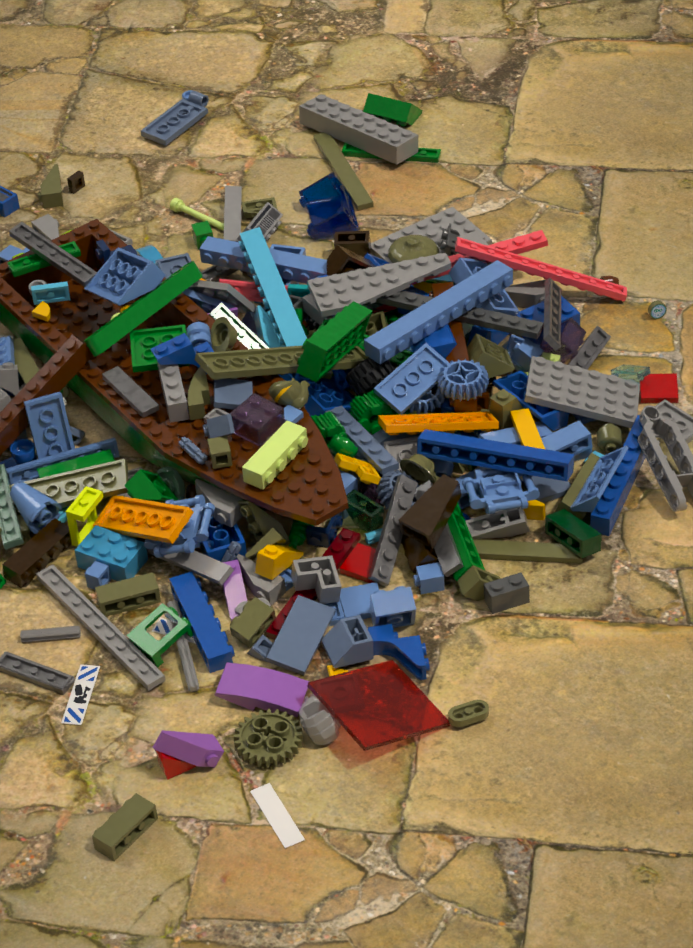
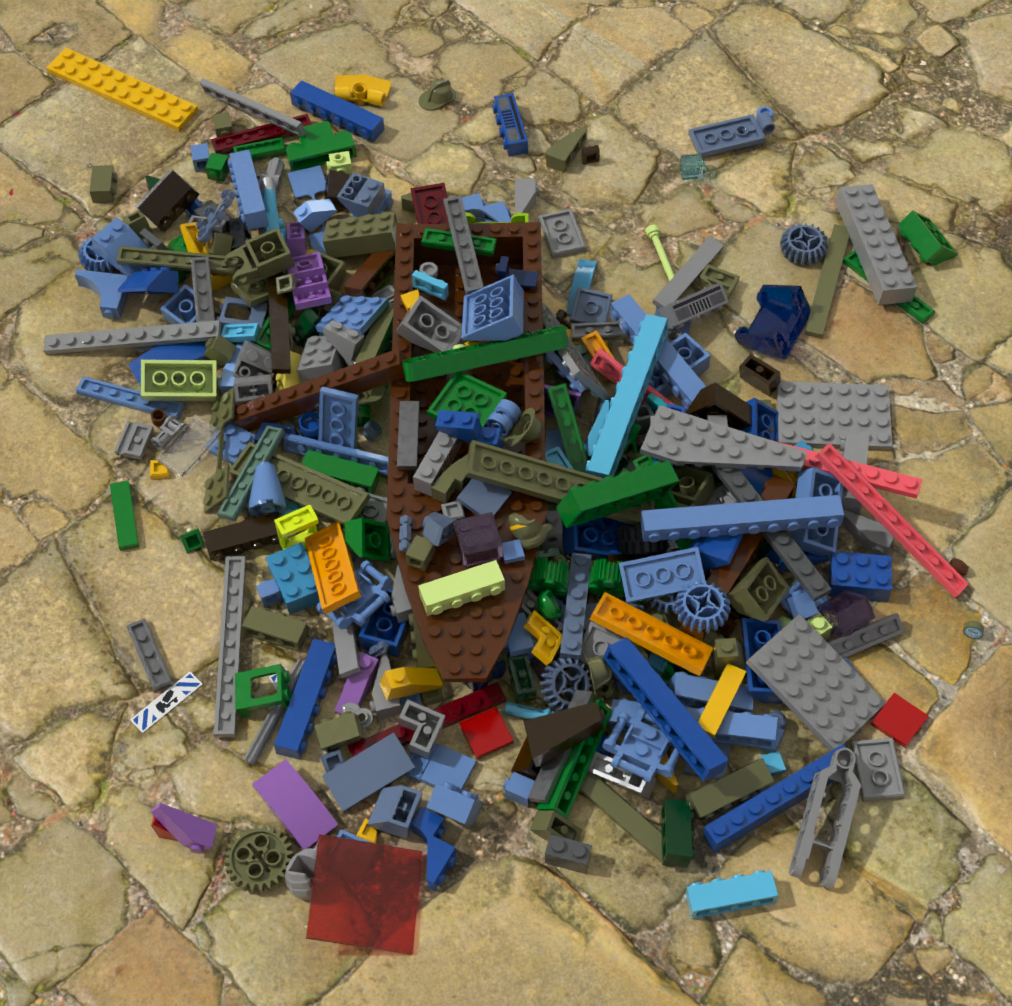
camera: 35 degrees right, 15 degrees up
(50, 633) = (190, 624): light grey axle -> none
(76, 316) = (430, 327): none -> light grey slope
(124, 827) = (84, 863): olive brick -> none
(166, 152) = (692, 166): none -> clear light blue brick
(201, 232) = (645, 280): green brick -> none
(273, 537) = (415, 660): olive slope -> none
(277, 815) = (207, 939): white sticker -> none
(303, 156) = (804, 244): none -> sand blue gear
(391, 532) = (514, 727): flat silver plate -> none
(412, 247) = (807, 417): olive hat -> none
(449, 239) = (850, 422): dark grey hinge -> none
(468, 713) = (433, 955): olive plate -> none
(552, 314) = (853, 581): flat silver tile -> none
(598, 480) = (738, 796): medium blue slope -> none
(609, 438) = (802, 747): olive head -> none
(631, 372) = (884, 686): clear light blue plate -> none
(647, 547) = (731, 894): none -> medium azure brick

